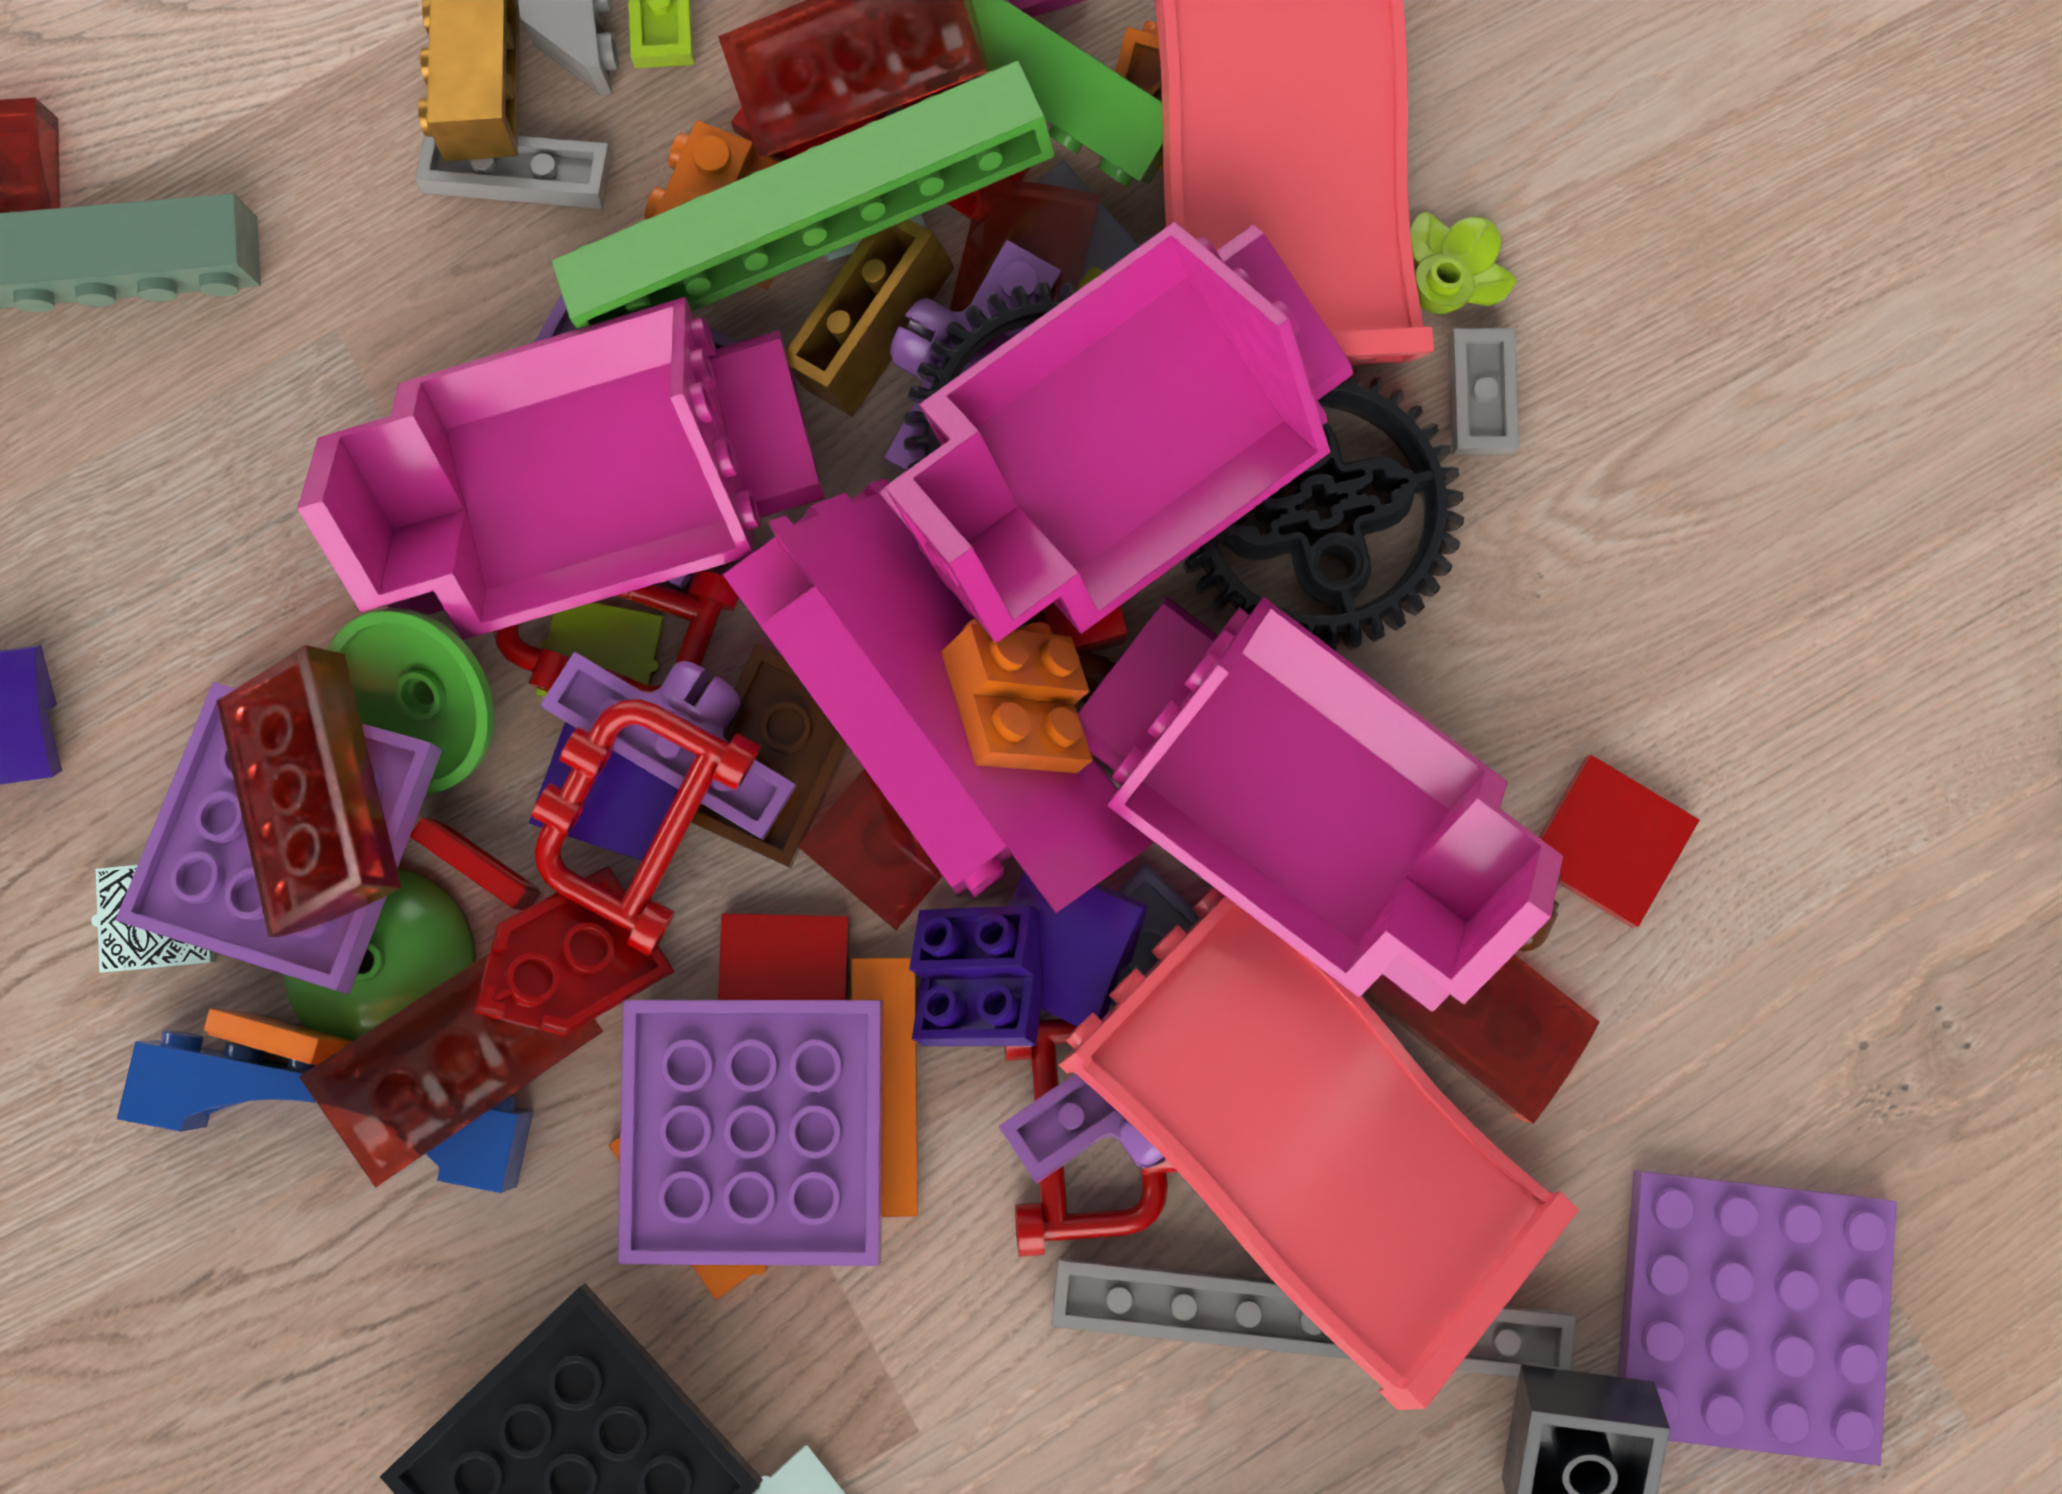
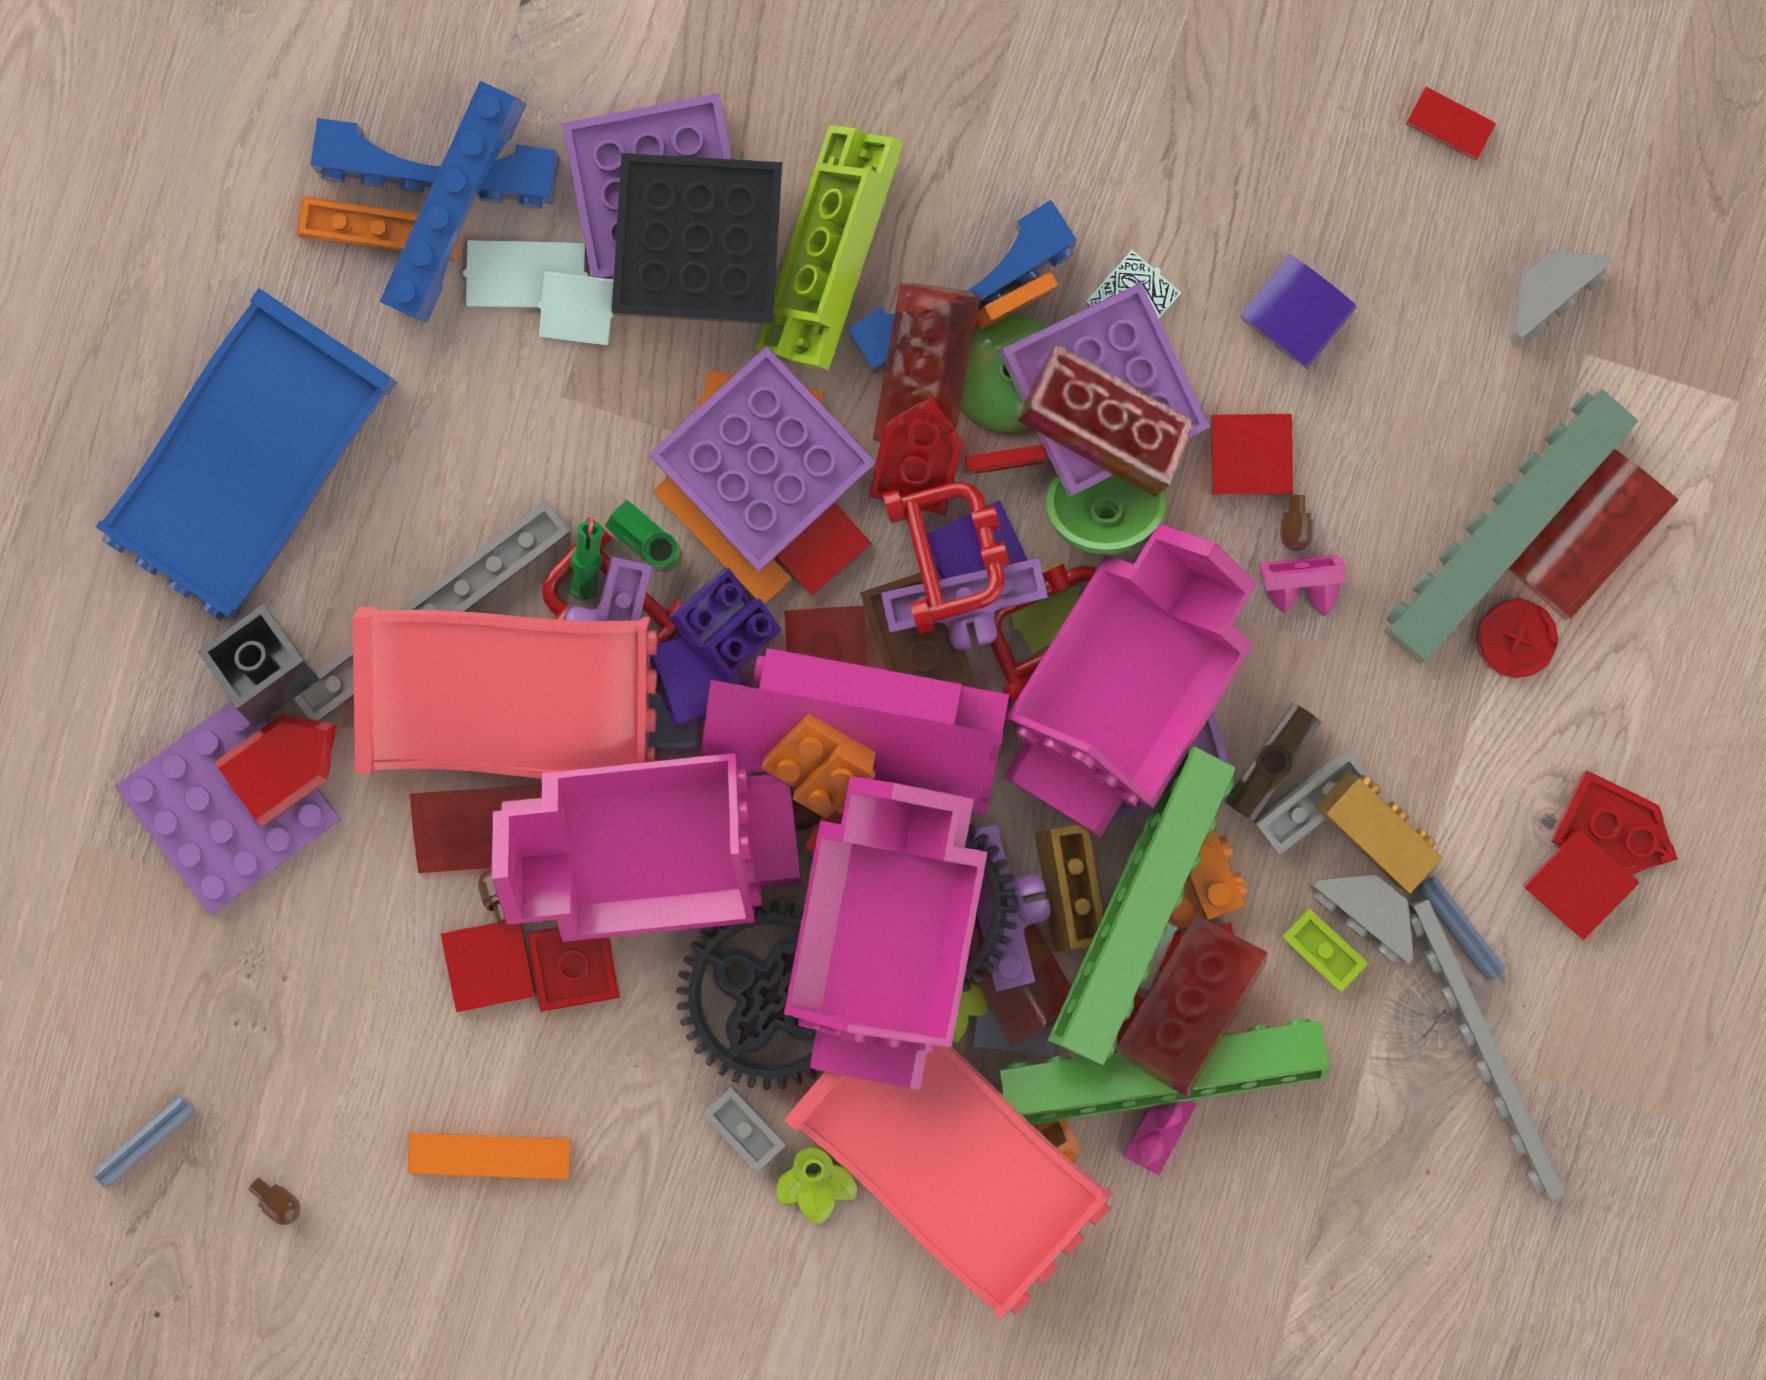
camera: 145 degrees right, 5 degrees up
(125, 142) = (1517, 638): none -> red tile
(202, 610) = (1251, 454): none -> red tile
(231, 484) = (1296, 525): none -> reddish brown cylinder
(264, 408) = (1318, 574): none -> dark pink tile
(427, 1314) = (829, 246): none -> lime slope
(476, 253) = (1288, 740): none -> dark brown piece
(977, 1174) = (642, 535): none -> green piece
(1070, 1207) = (586, 560): none -> green pin
(1524, 742) = (572, 970): none -> red tile
(1662, 1305) = (279, 765): none -> red tile
(1802, 626) = (489, 1155): none -> orange tile

